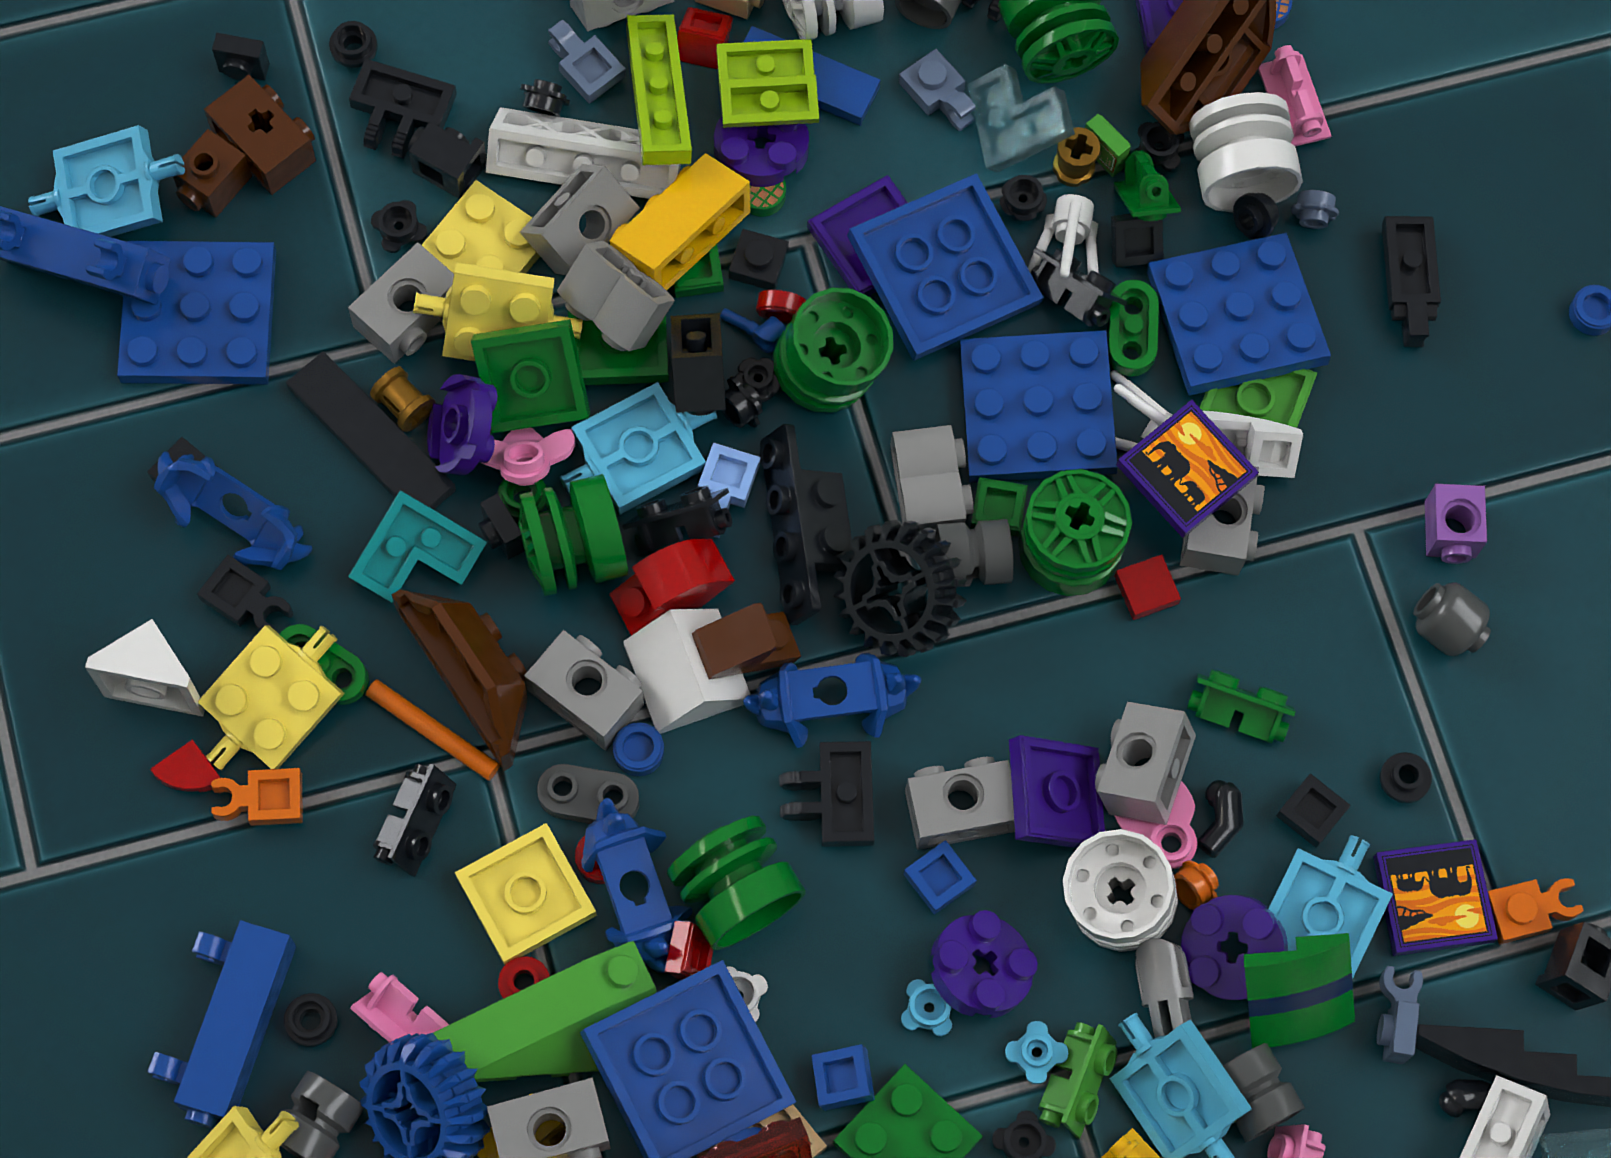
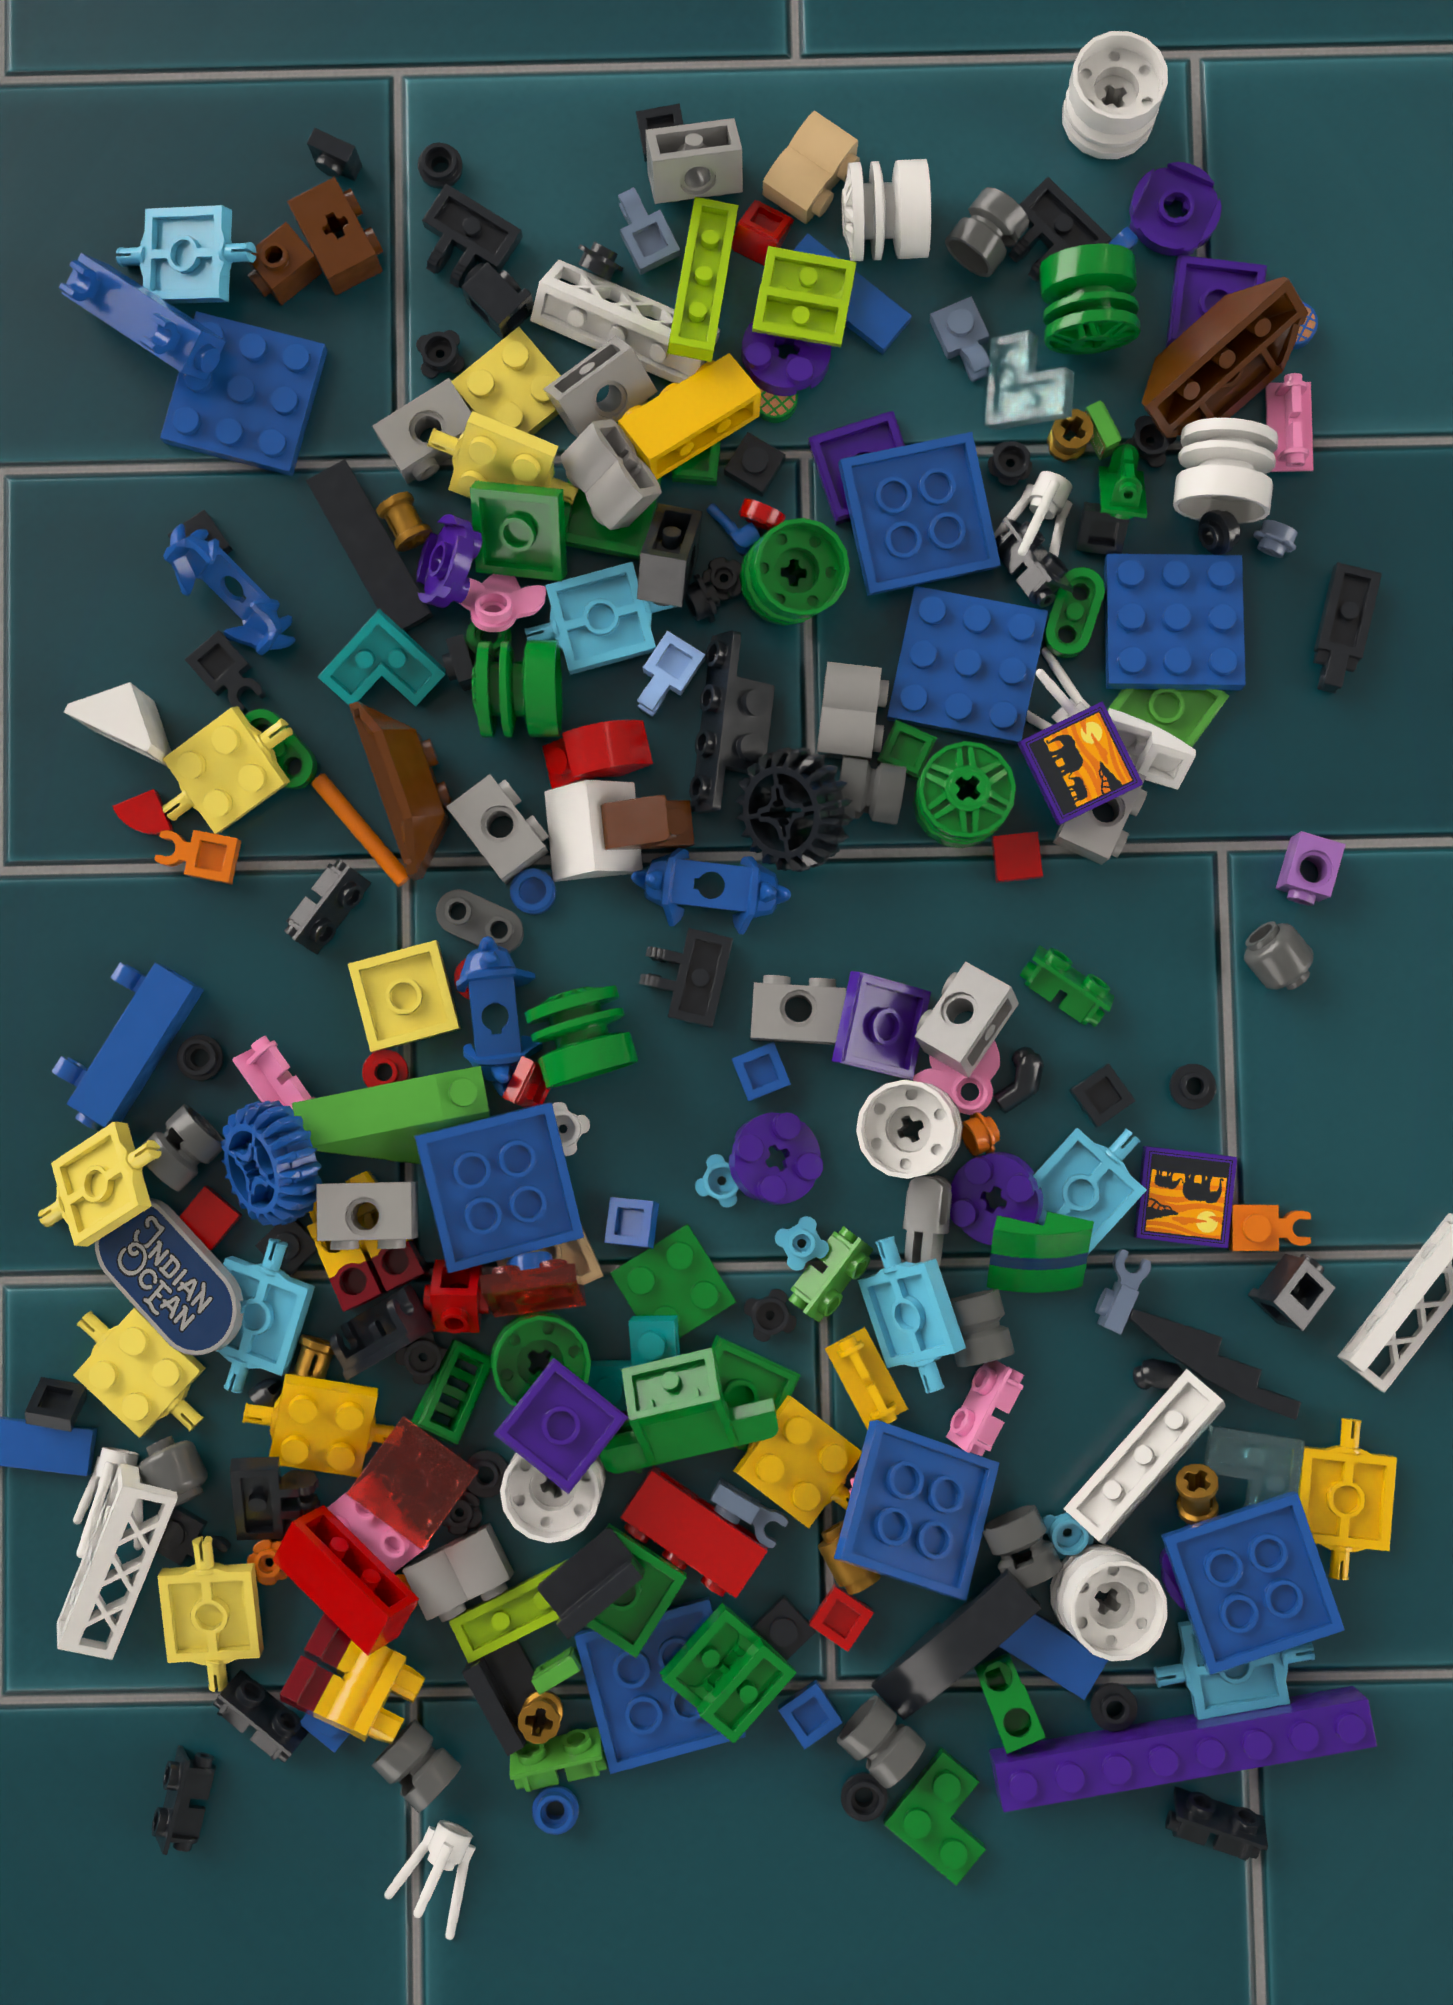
camera: 25 degrees right, 15 degrees up
(696, 511) = (633, 690): black hinge -> none

